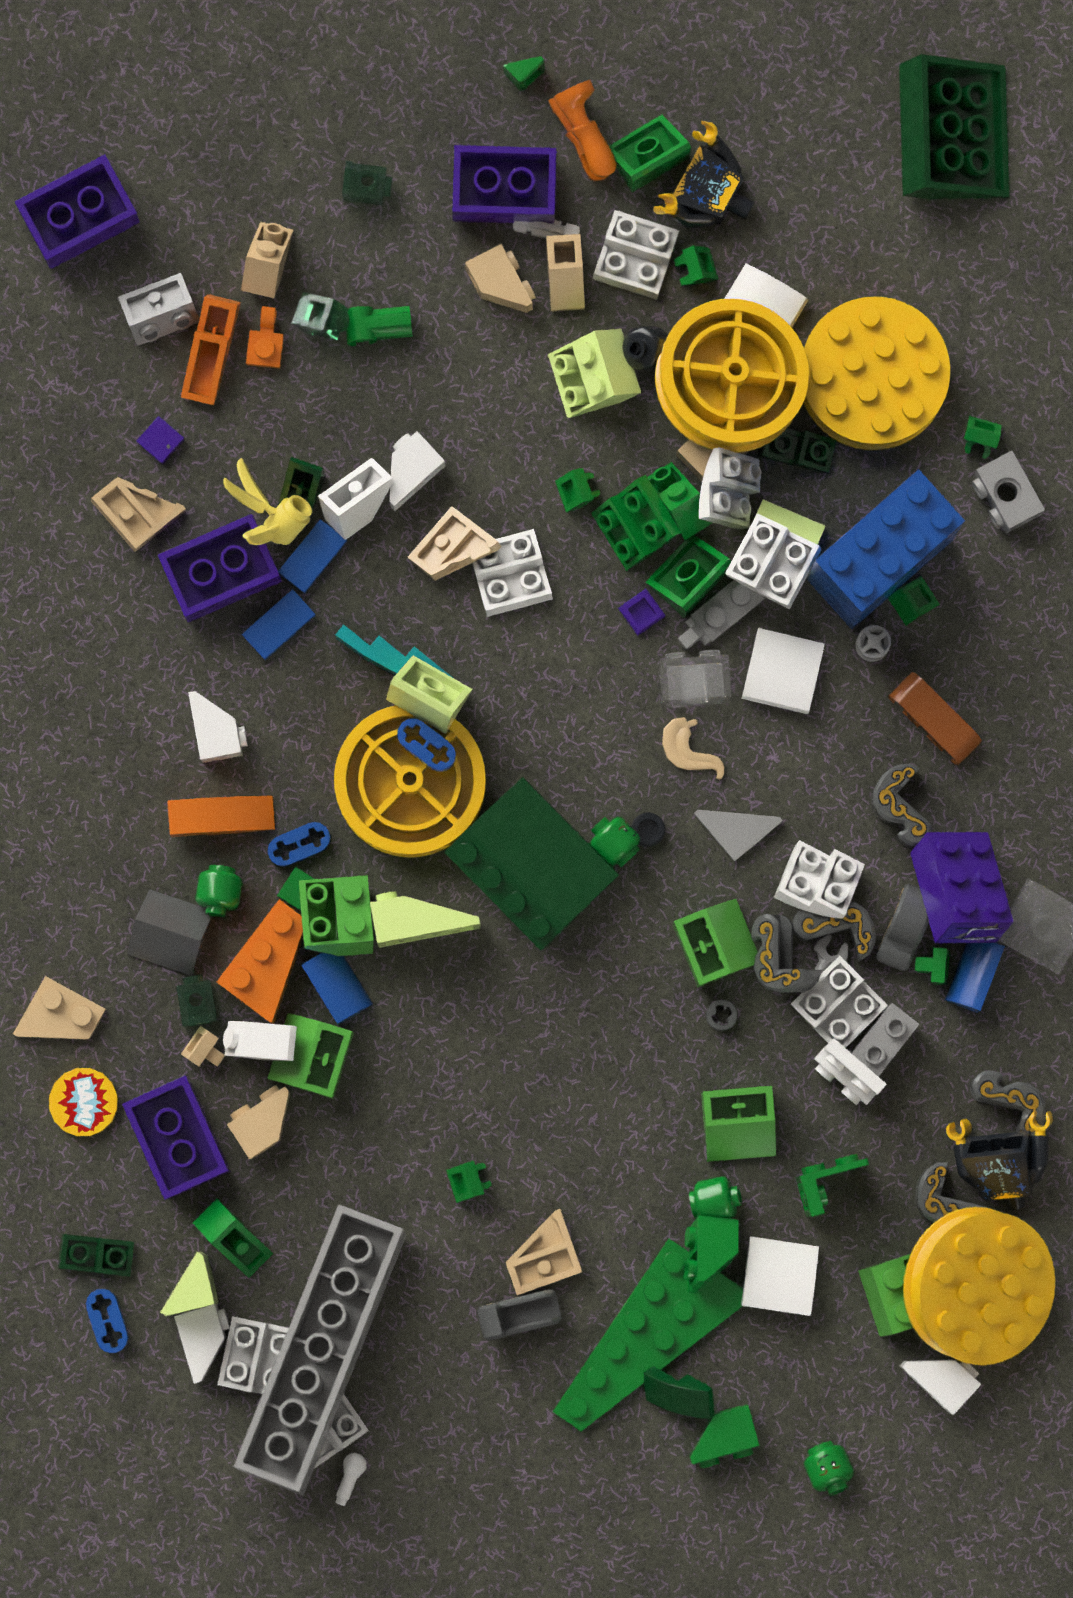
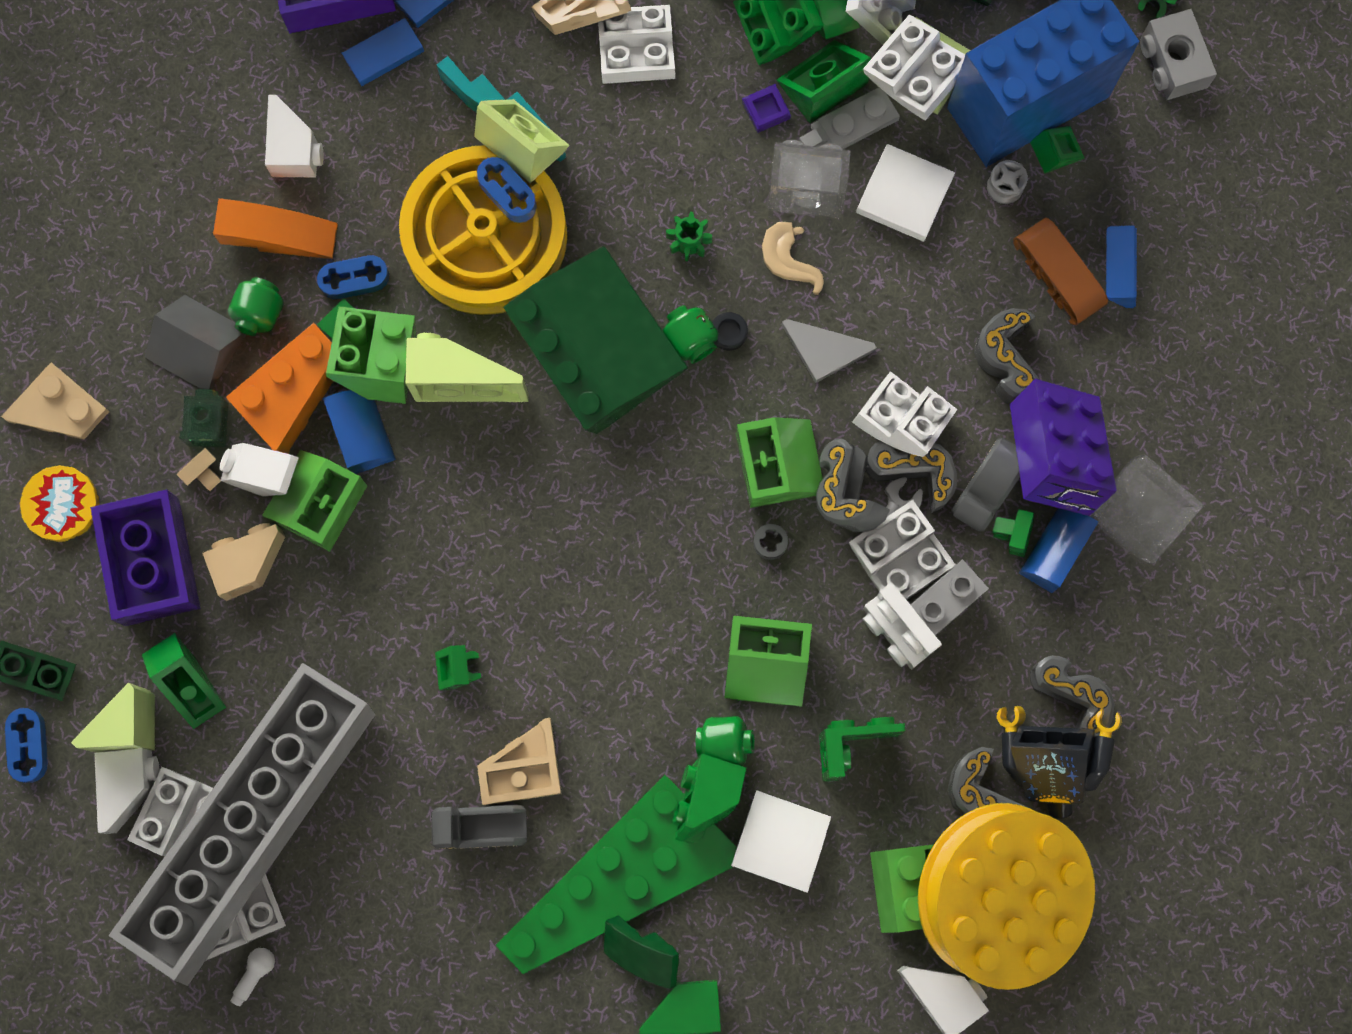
camera: 15 degrees right, 5 degrees down
(596, 759) = (687, 245): none -> green gear
(988, 704) = (1121, 265): none -> blue slope

